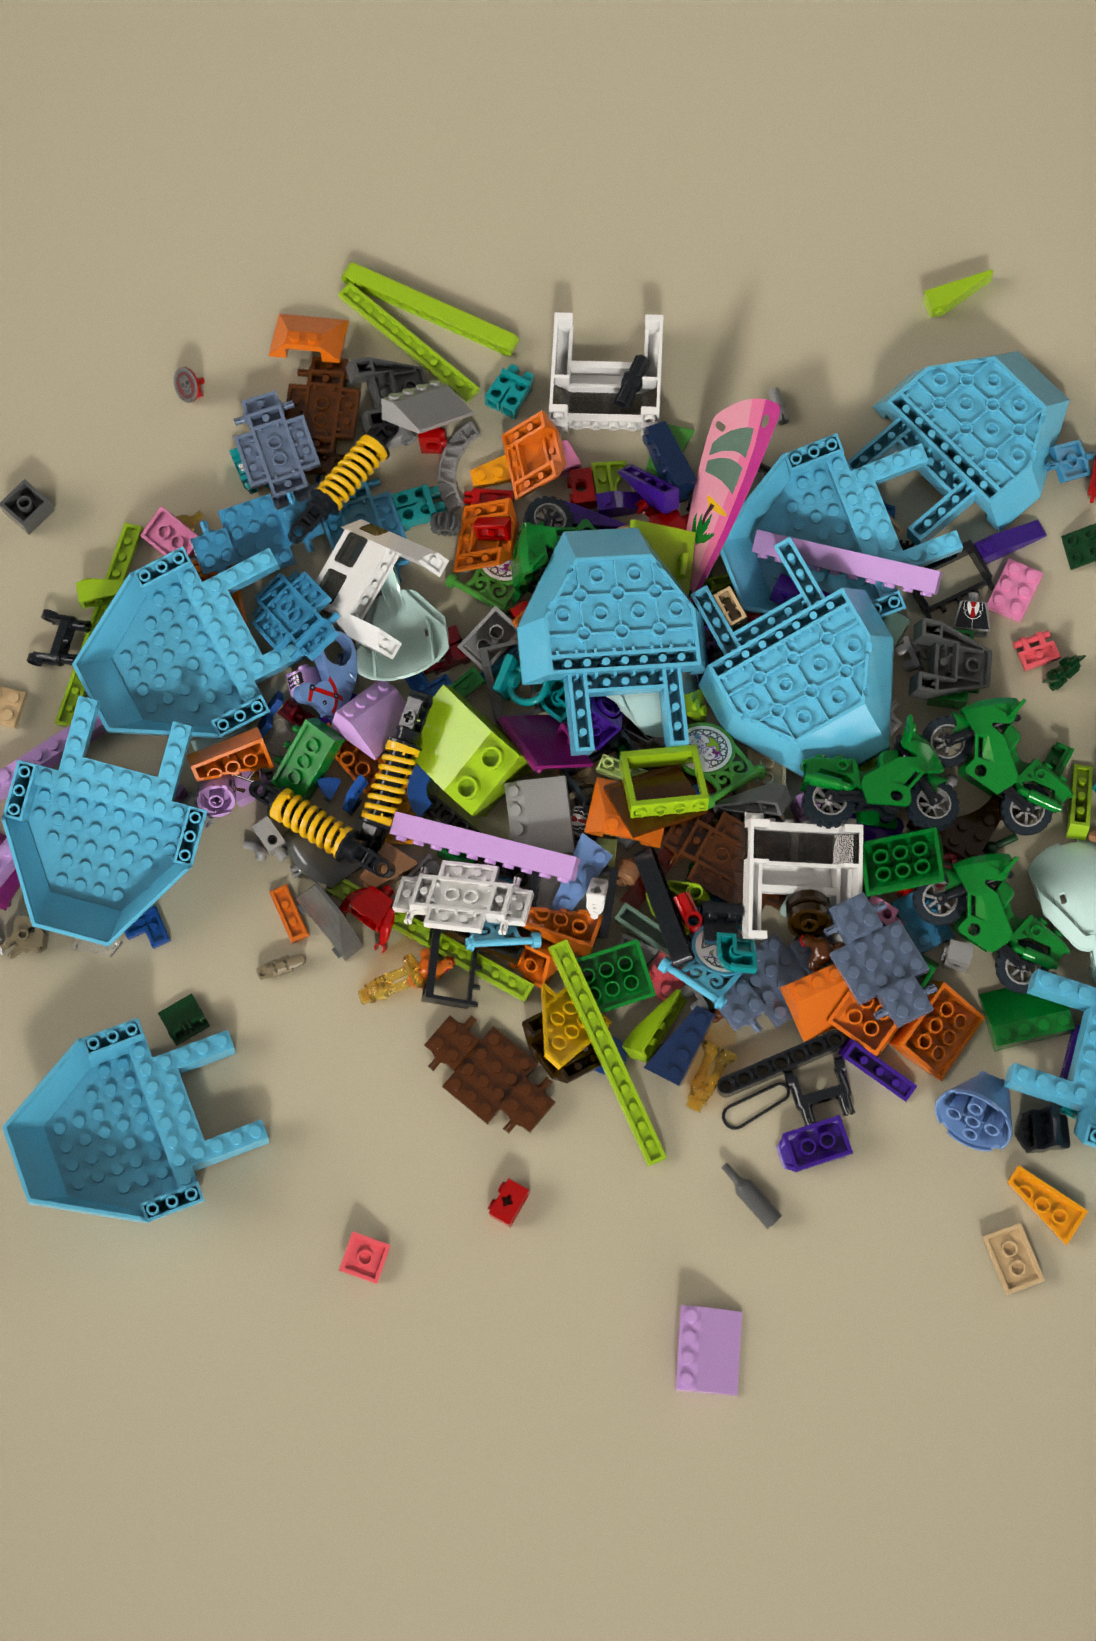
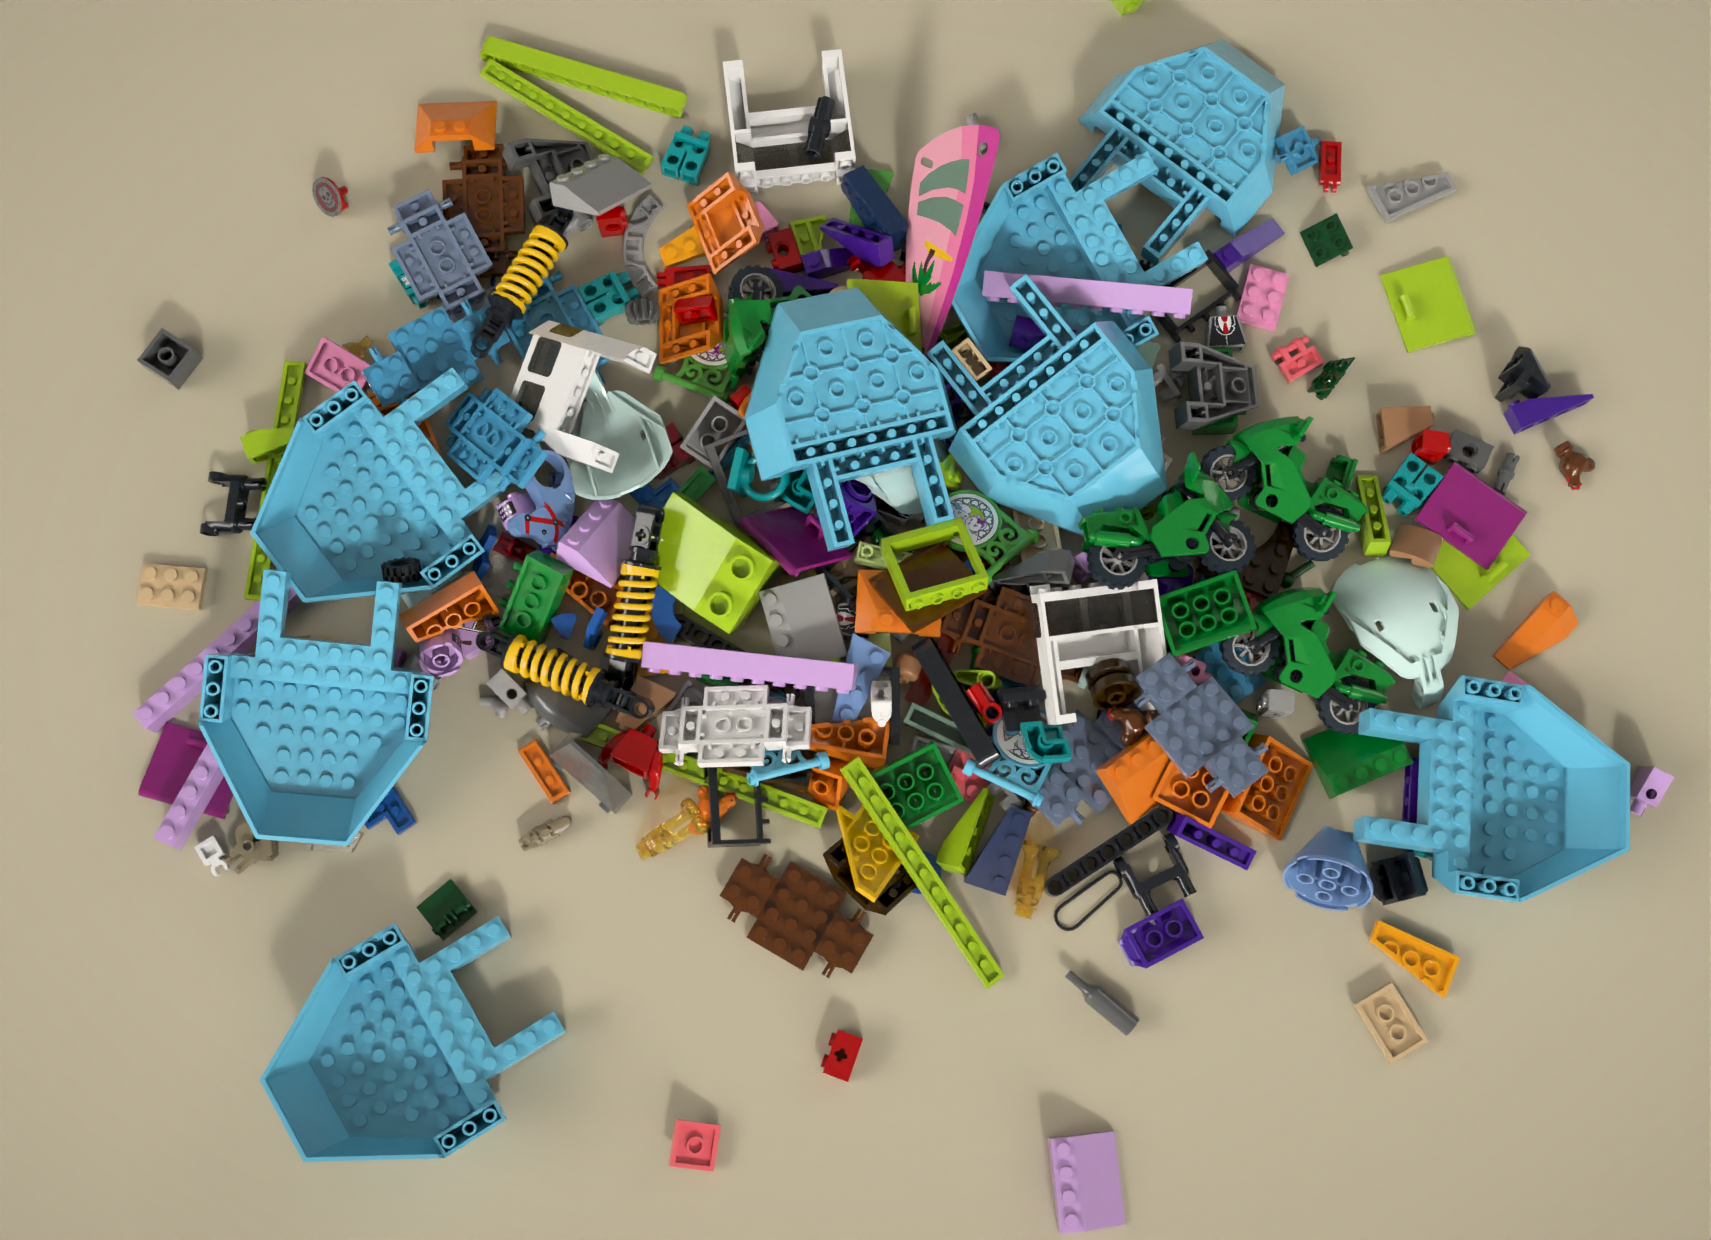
camera: 20 degrees left, 5 degrees up
(196, 717) = (402, 570): none -> black tyre

